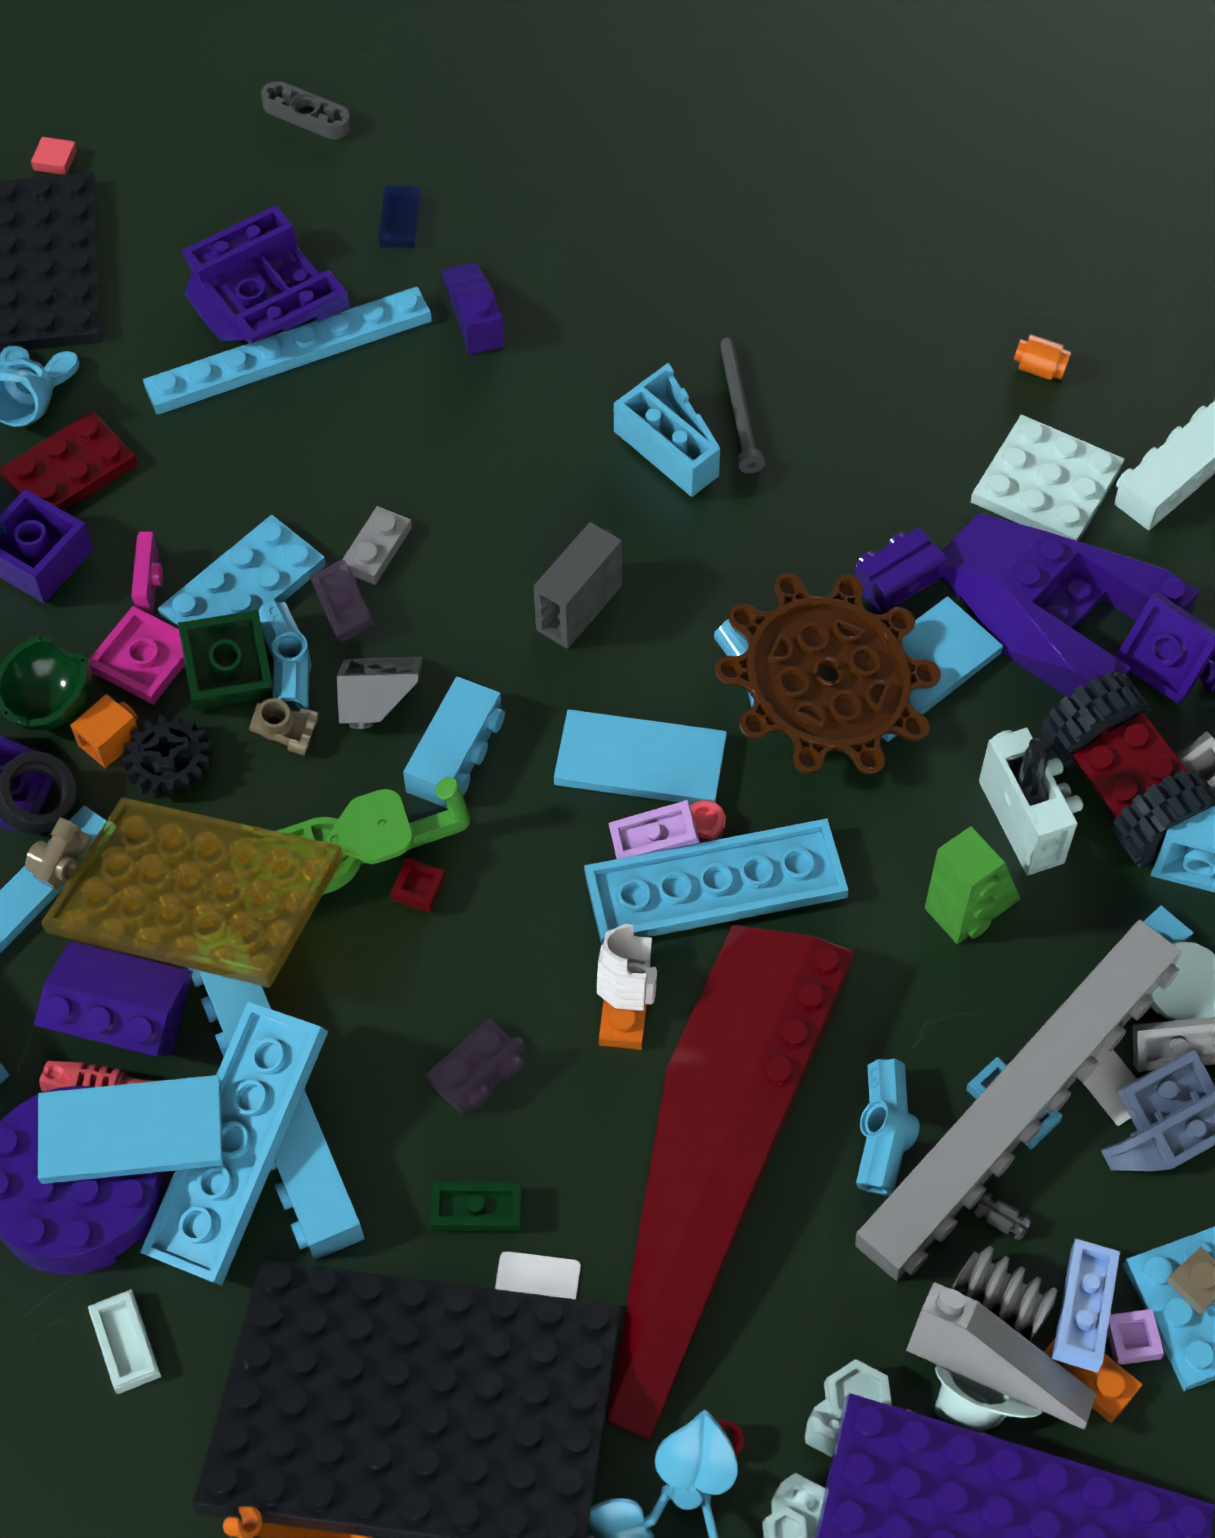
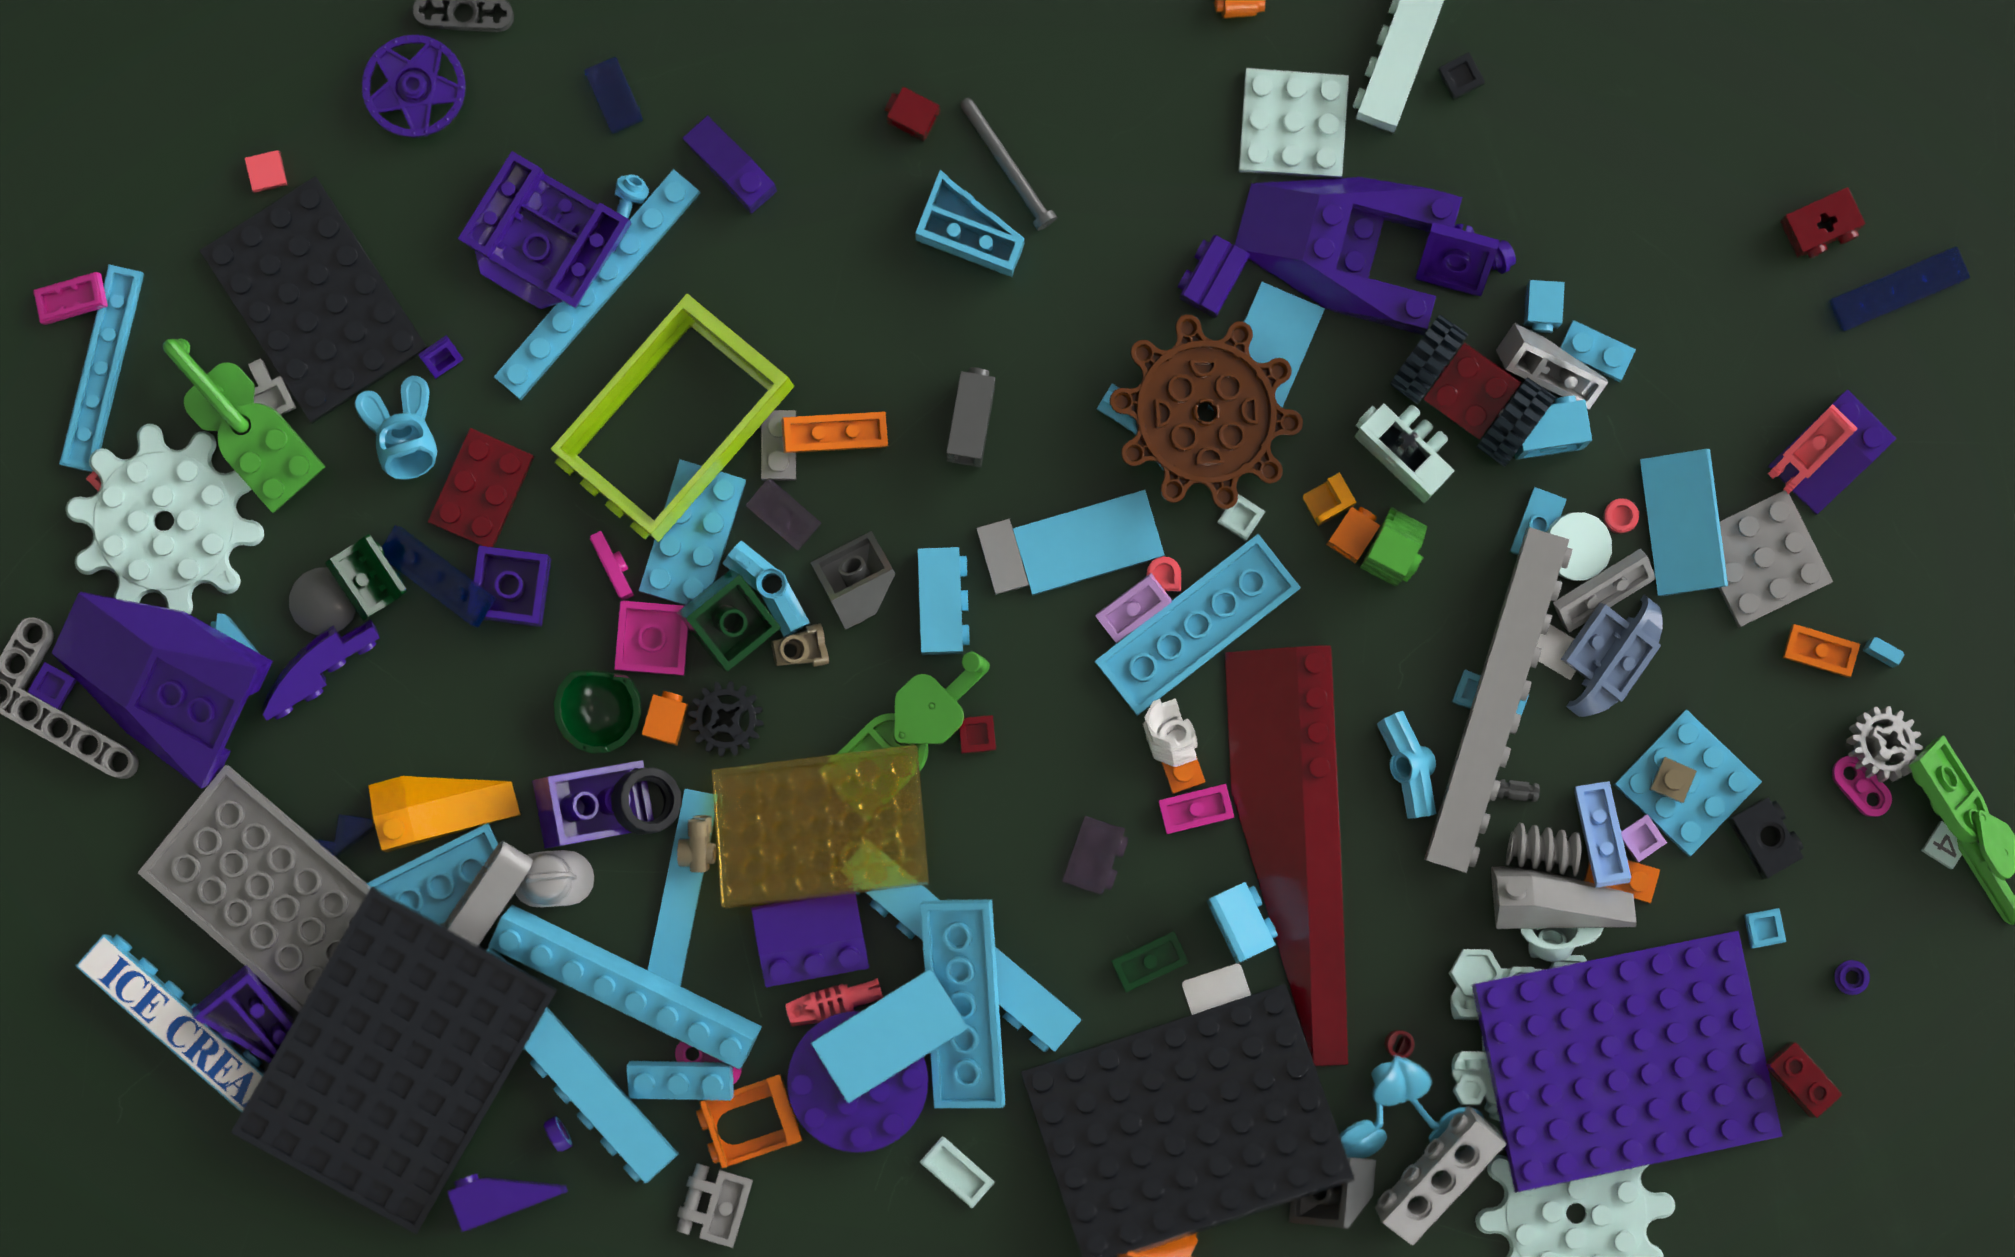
camera: 30 degrees left, 25 degrees up
(105, 344) = (440, 357): none -> dark purple slope
(224, 136) = (413, 86): none -> dark purple wheel
(271, 427) = (683, 316): none -> lime window
(367, 288) = (630, 189): none -> medium azure plate
(436, 548) = (834, 432): none -> orange plate
(542, 733) = (1002, 556): none -> light grey tile
(603, 1205) = (1242, 922): none -> medium azure slope
(616, 1066) = (1196, 809): none -> dark pink plate
(670, 327) = (912, 113): none -> dark red brick
(817, 801) = (1241, 518): none -> light aqua tile
(918, 862) = (1354, 533): none -> orange brick
(924, 826) = (1329, 499): none -> light orange panel

